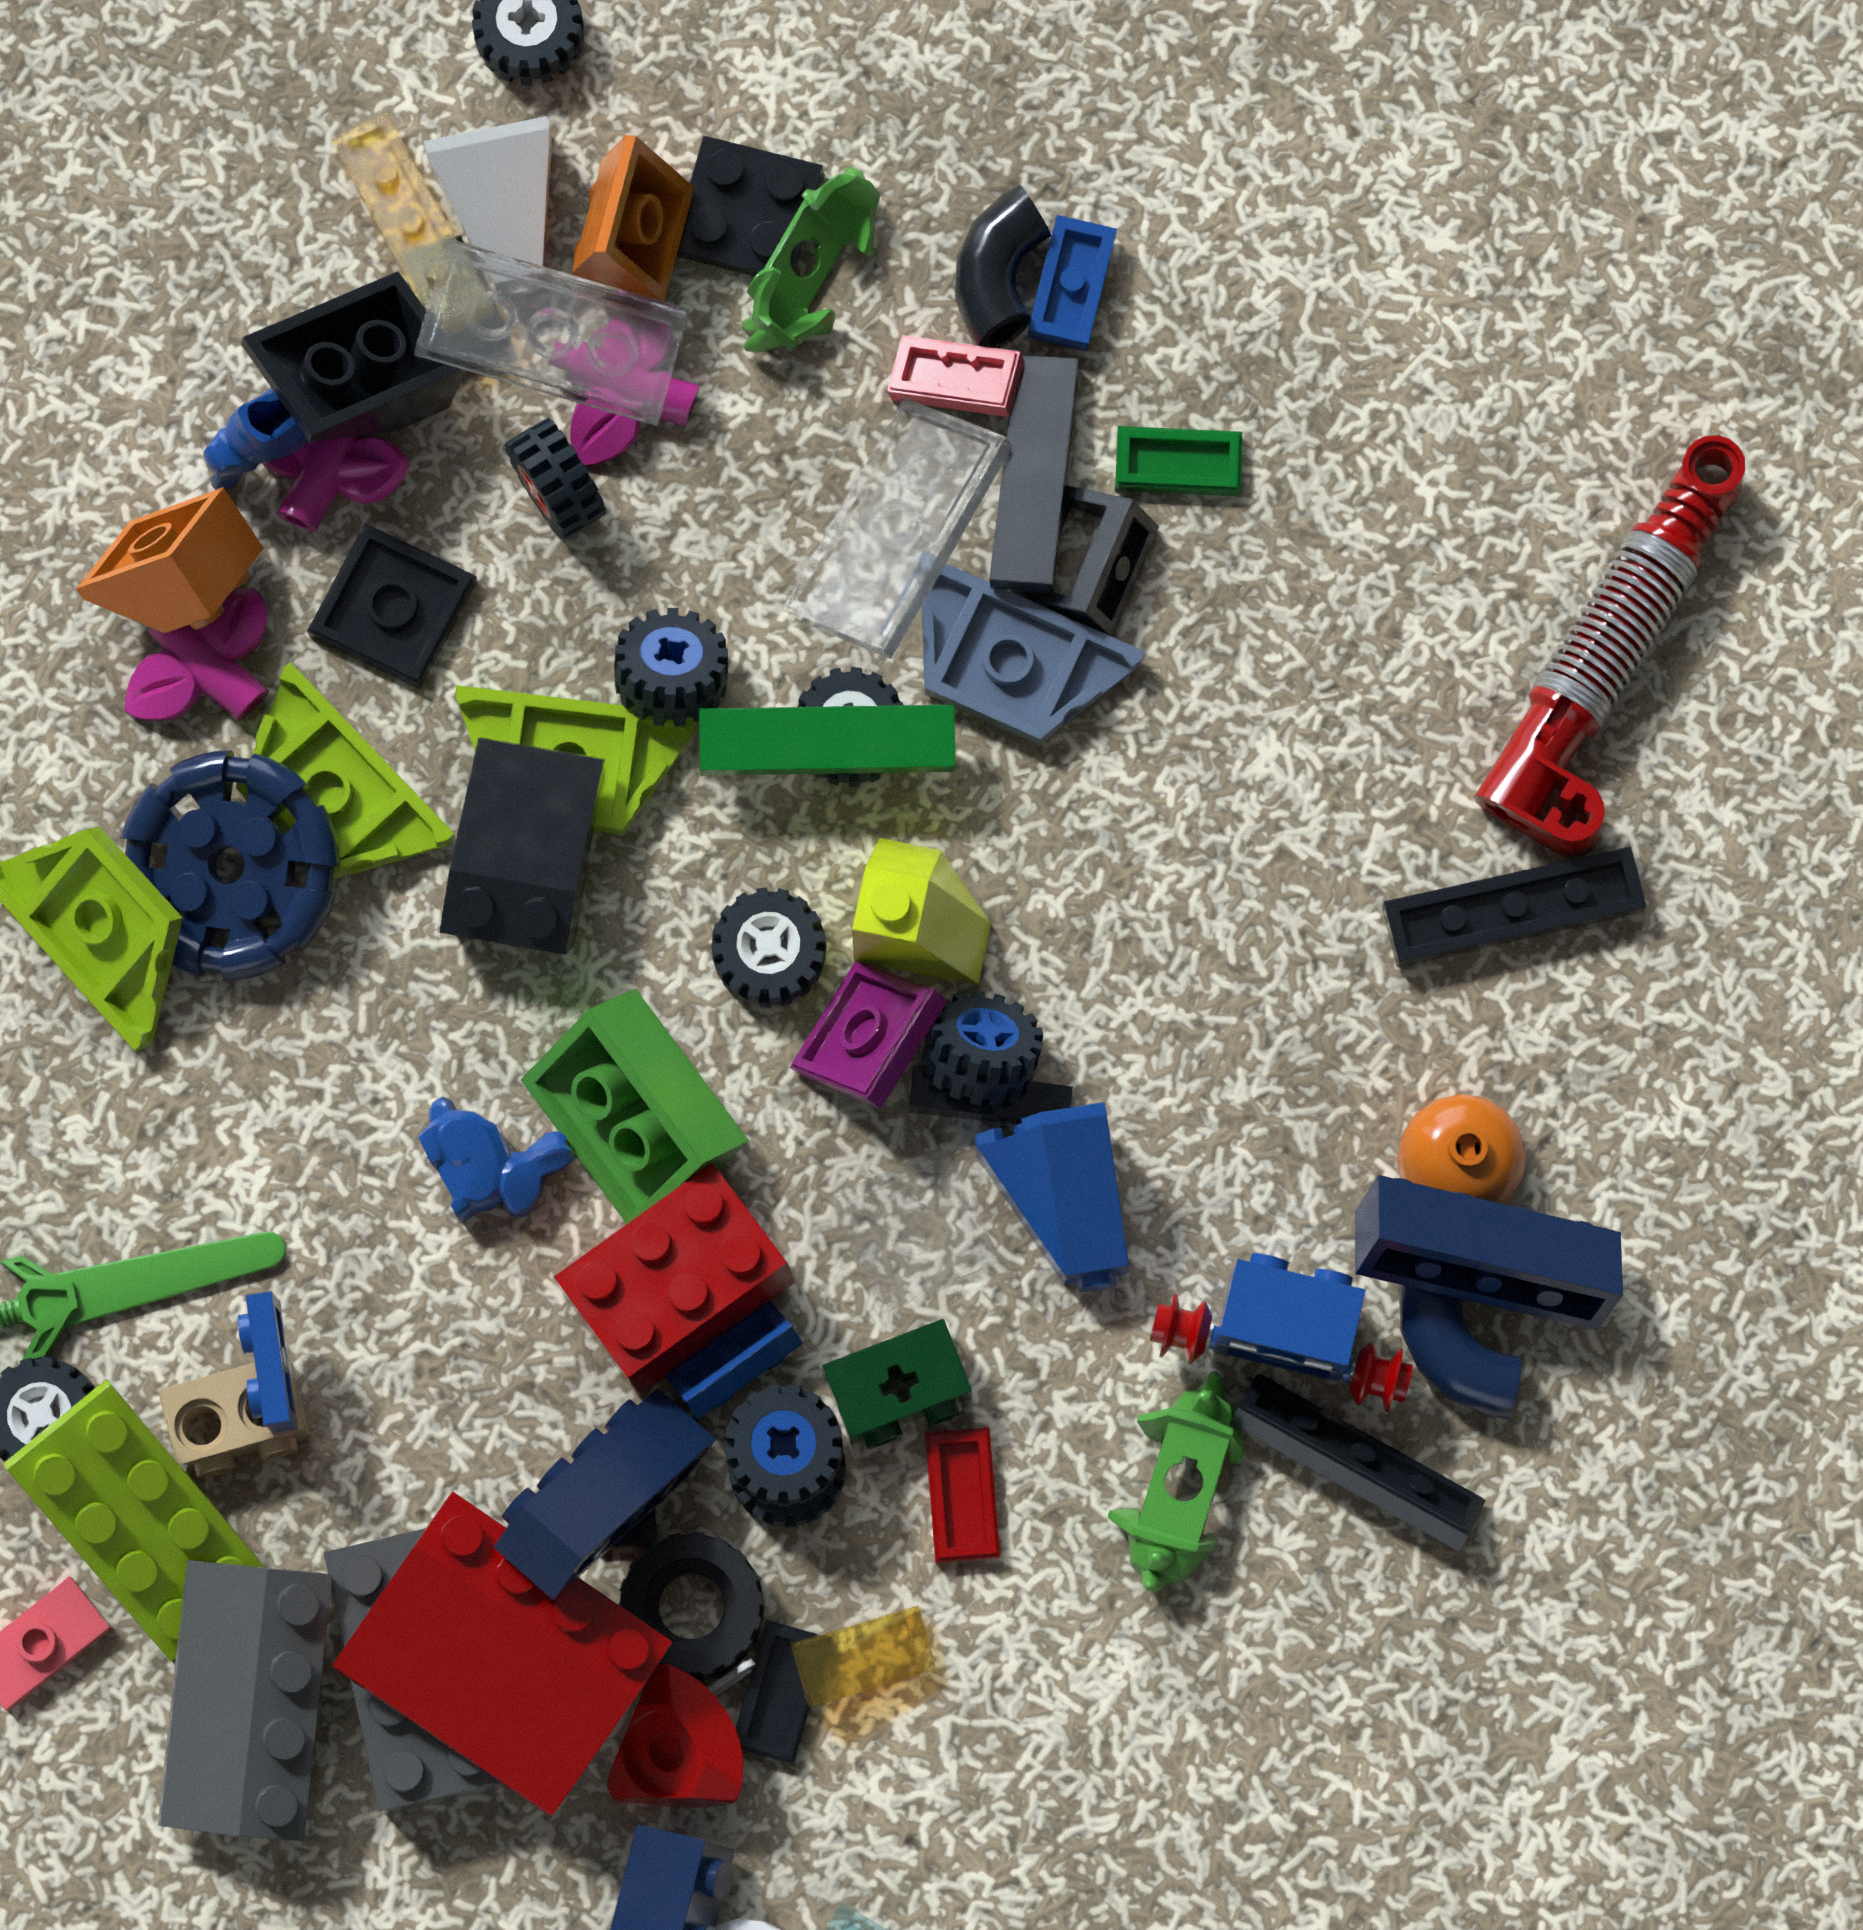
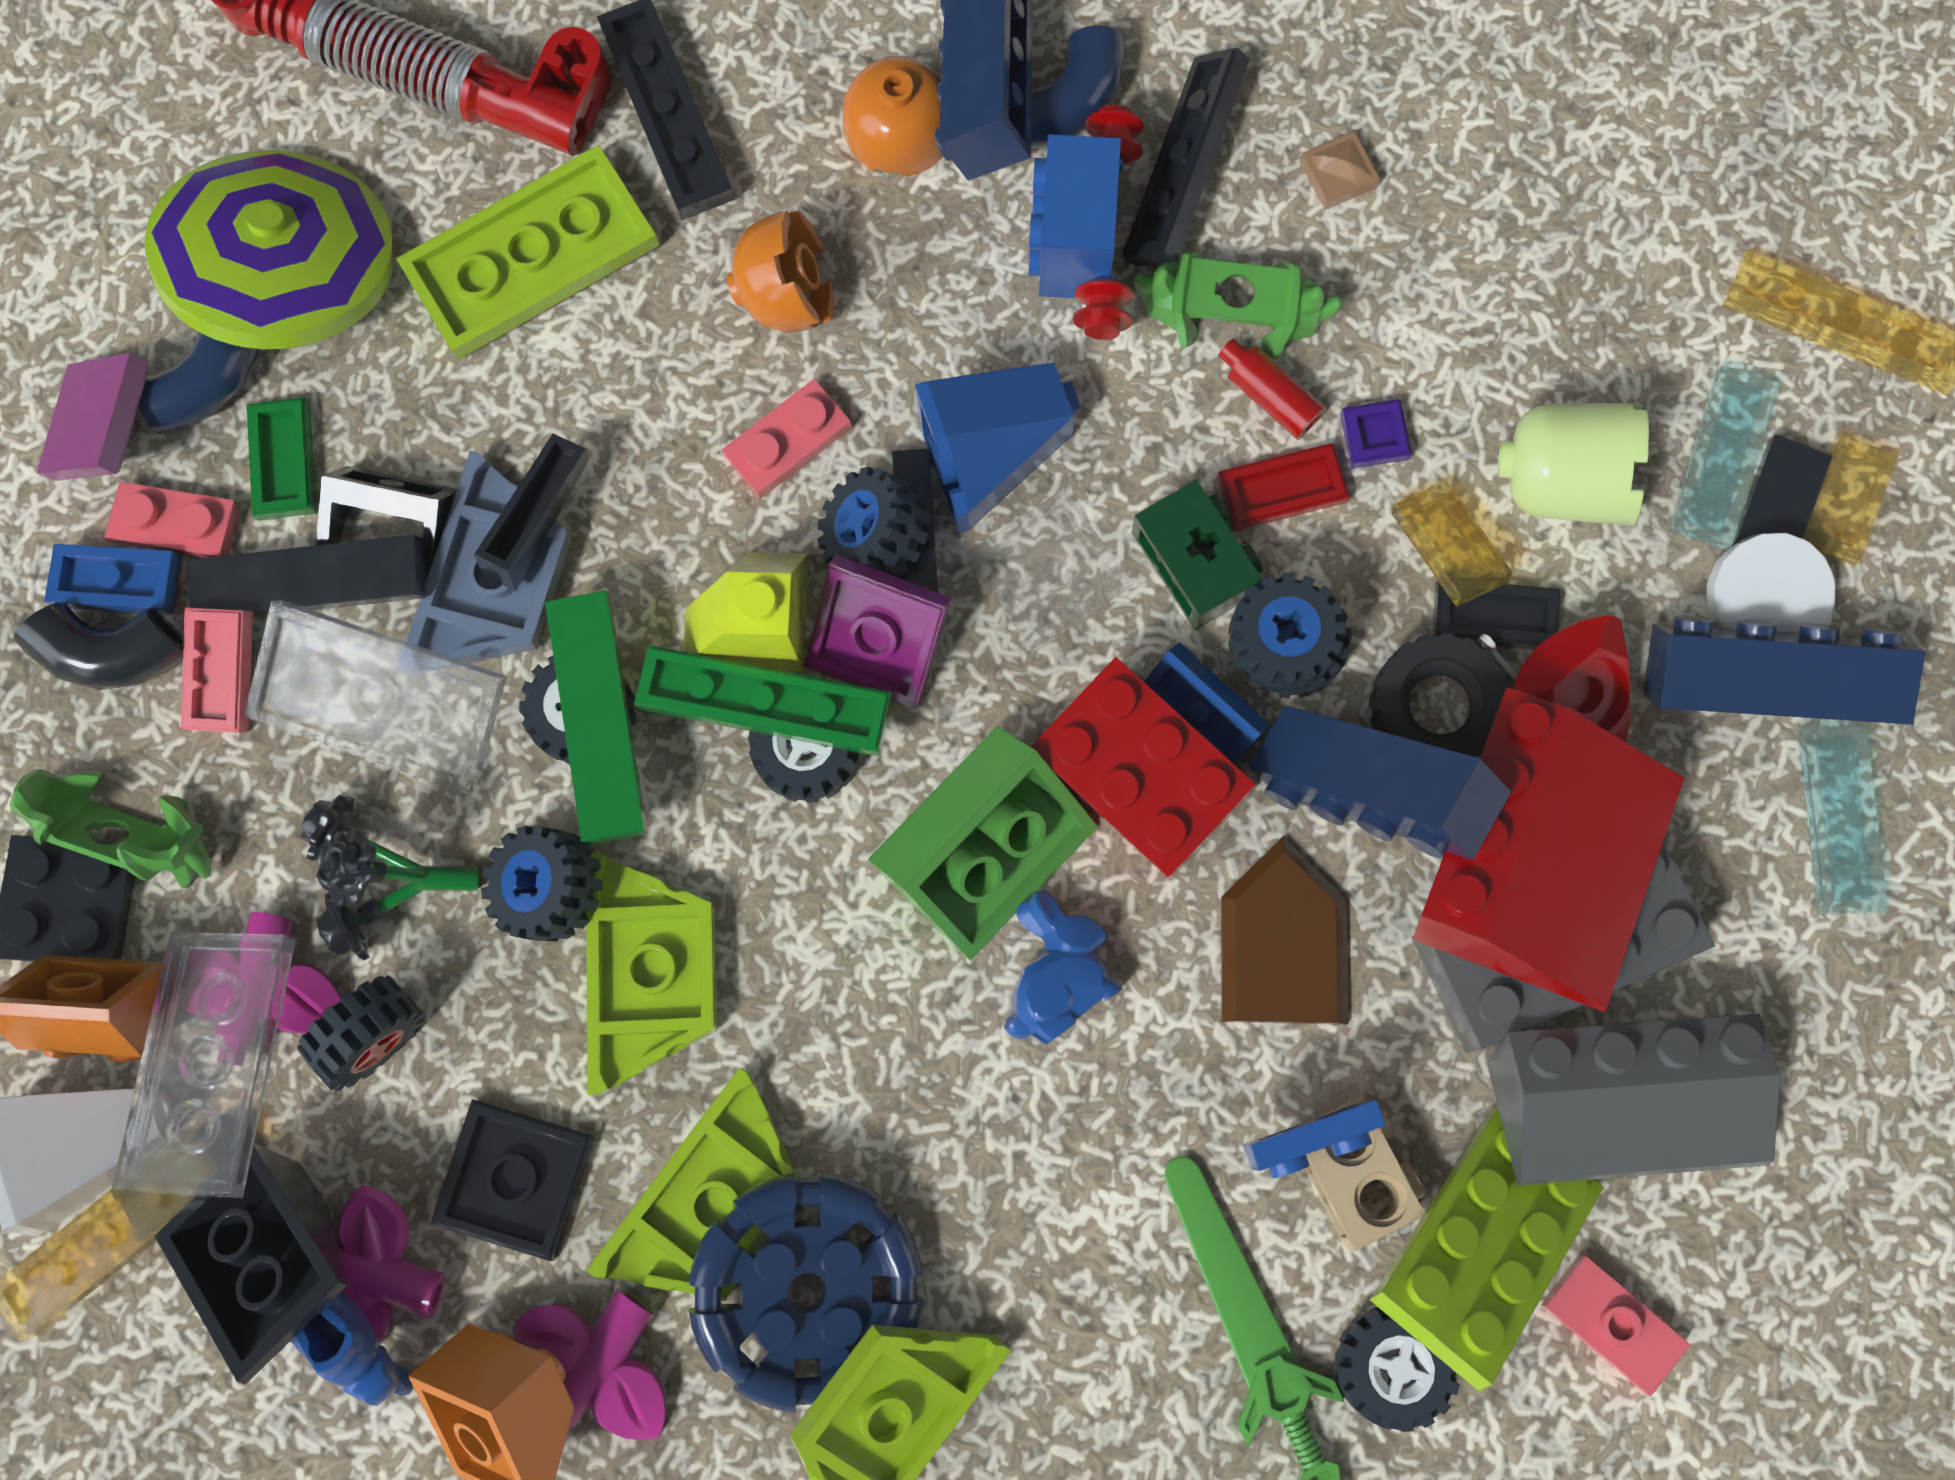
camera: 95 degrees left, 0 degrees up
(475, 1397) = (1284, 944): none -> reddish brown tile
(523, 846) = (744, 992): black slope -> none
(706, 486) = (351, 862): none -> black plant
(814, 908) = (763, 700): none -> green tile
(920, 1801) = (1577, 461): none -> yellowish green cylinder
(1005, 1607) = (1375, 434): none -> dark purple tile
(1061, 705) = (531, 512): none -> black piece
(1073, 1504) = (1272, 388): none -> red cylinder
(1109, 981) = (787, 438): none -> coral plate
(1127, 346) = (172, 521): none -> coral plate
(1244, 277) = (93, 417): none -> magenta tile
(1281, 400) = (195, 384): none -> dark blue cylinder
(1284, 998) = (775, 268): none -> orange cylinder
(1320, 1634) = (1339, 170): none -> medium nougat tile
(1366, 740) = (528, 252): none -> lime plate
(1404, 474) = (269, 249): none -> dish

